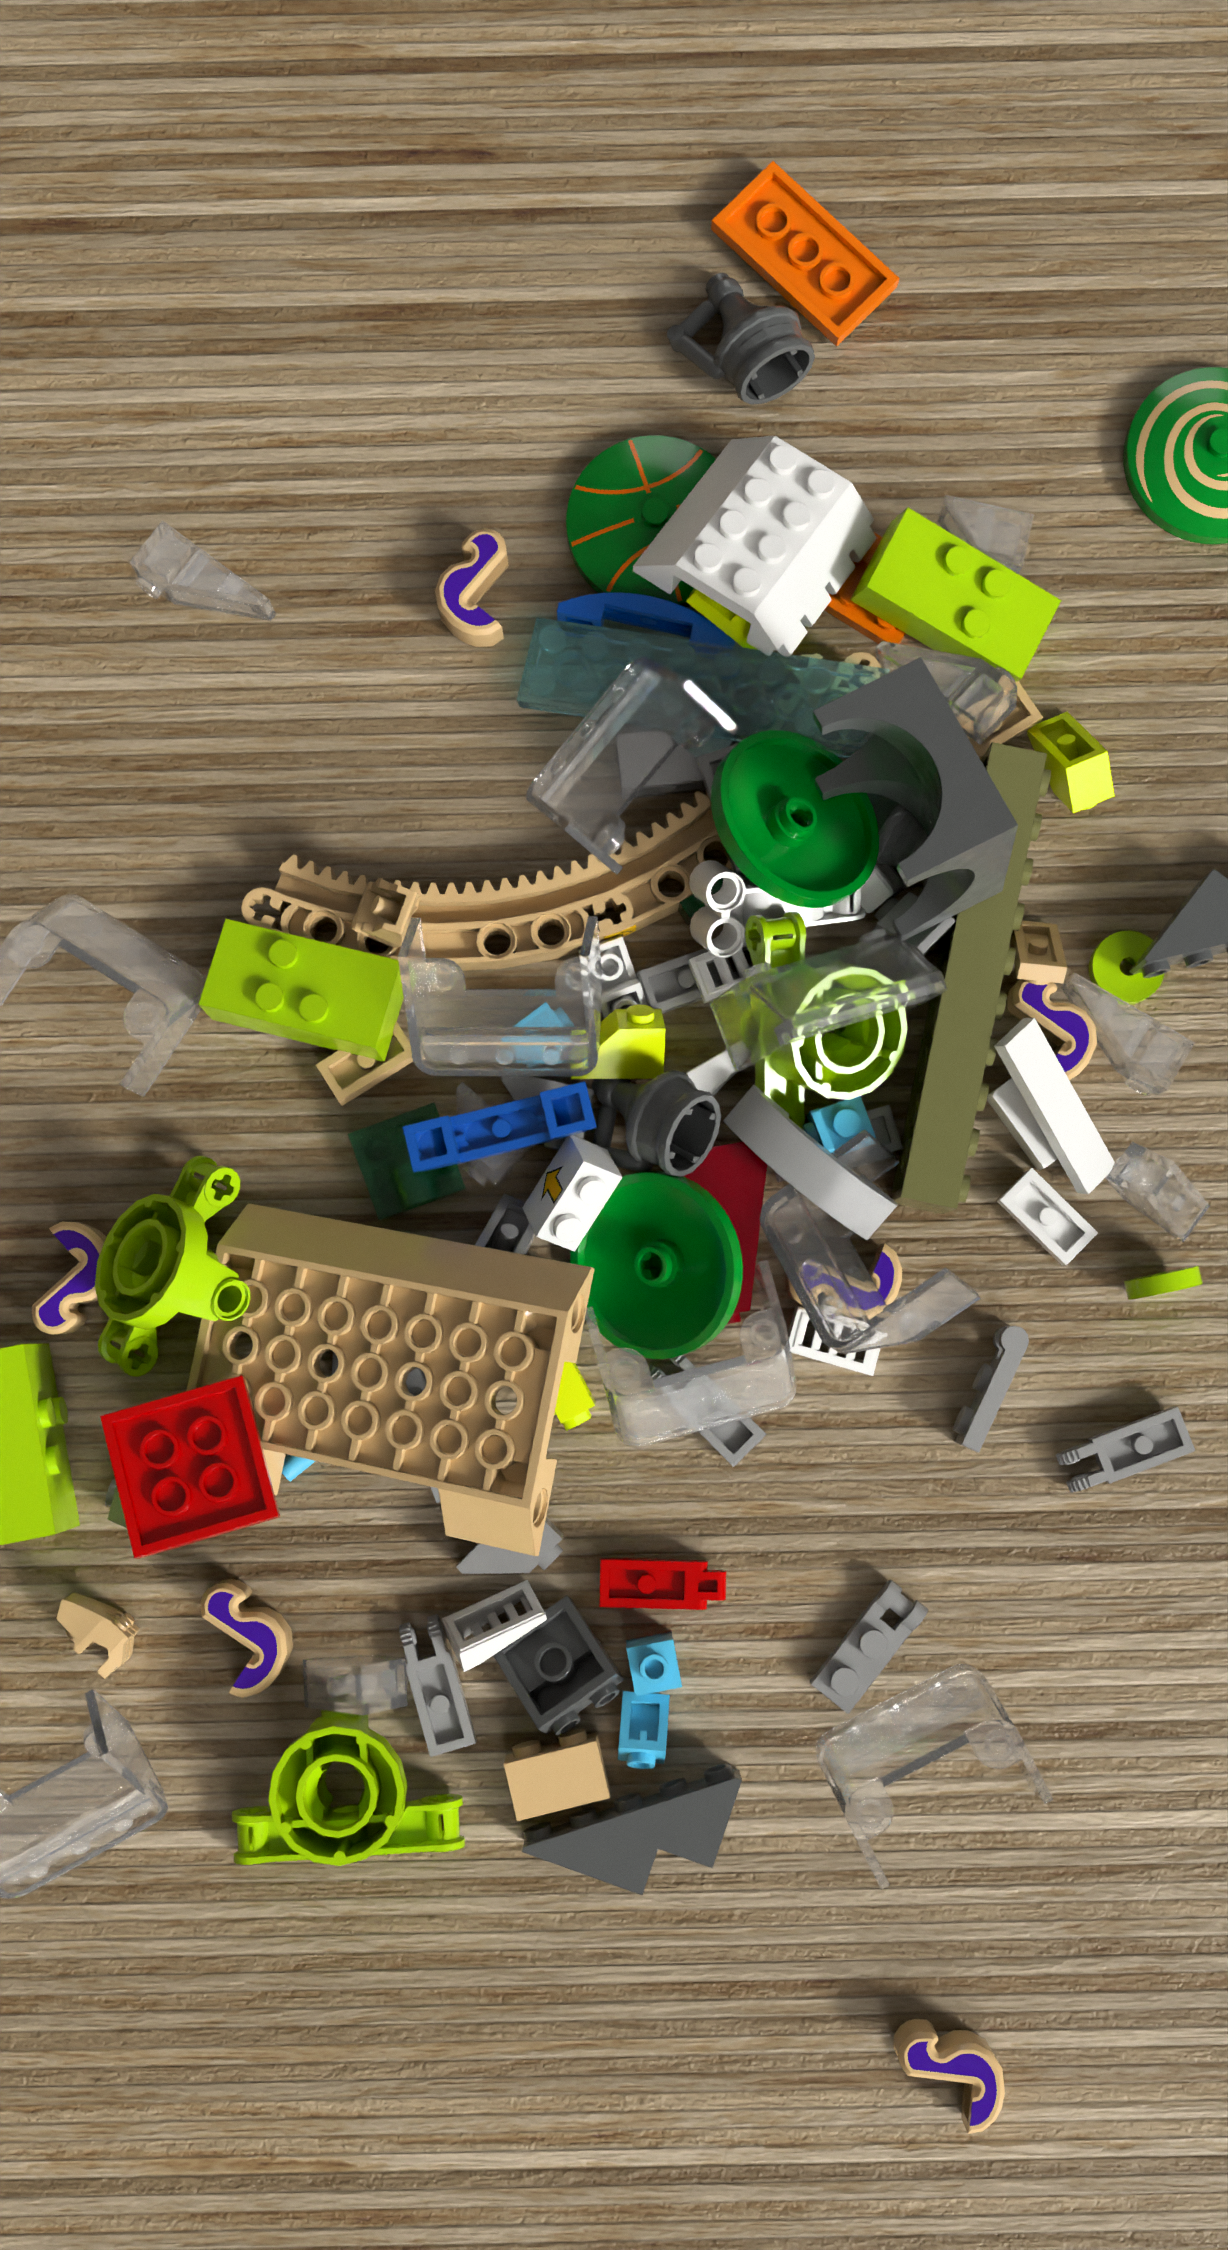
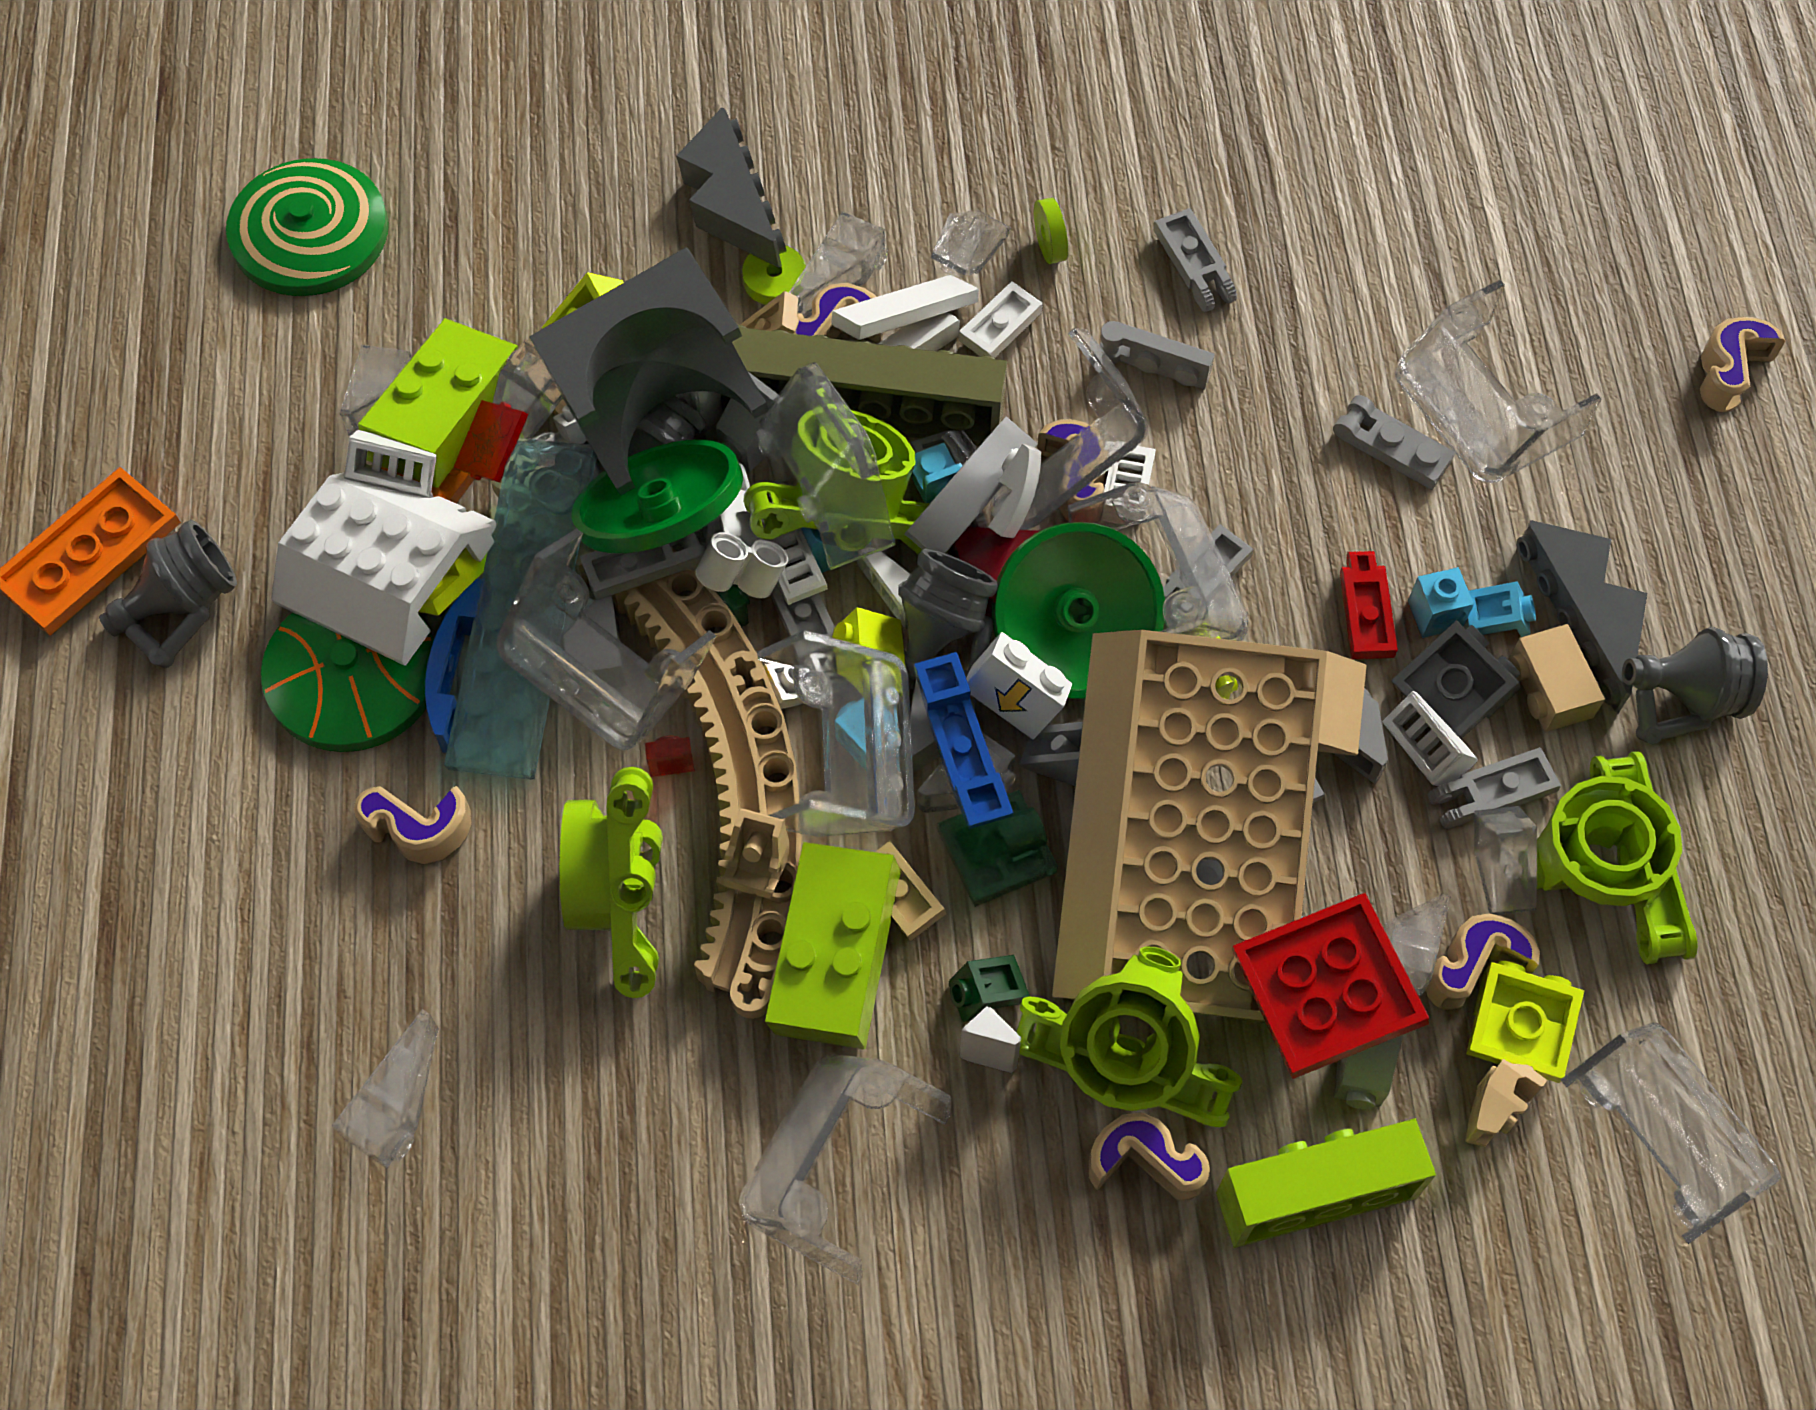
camera: 95 degrees left, 20 degrees down
(177, 1670) = (1525, 1019): none -> neon yellow plate
(190, 1134) = (990, 1042): none -> white slope
(260, 1141) = (988, 983): none -> dark green bracket
(268, 1567) = (1417, 939): none -> clear slope
(380, 764) = (608, 876): none -> lime piece
(530, 837) = (669, 756): none -> clear red plate
(536, 1941) = (1710, 676): none -> dark grey piece
(789, 1207) = (1021, 476): none -> white slope
(866, 531) = (358, 470): none -> white slope
(891, 645) = (490, 440): none -> red piece

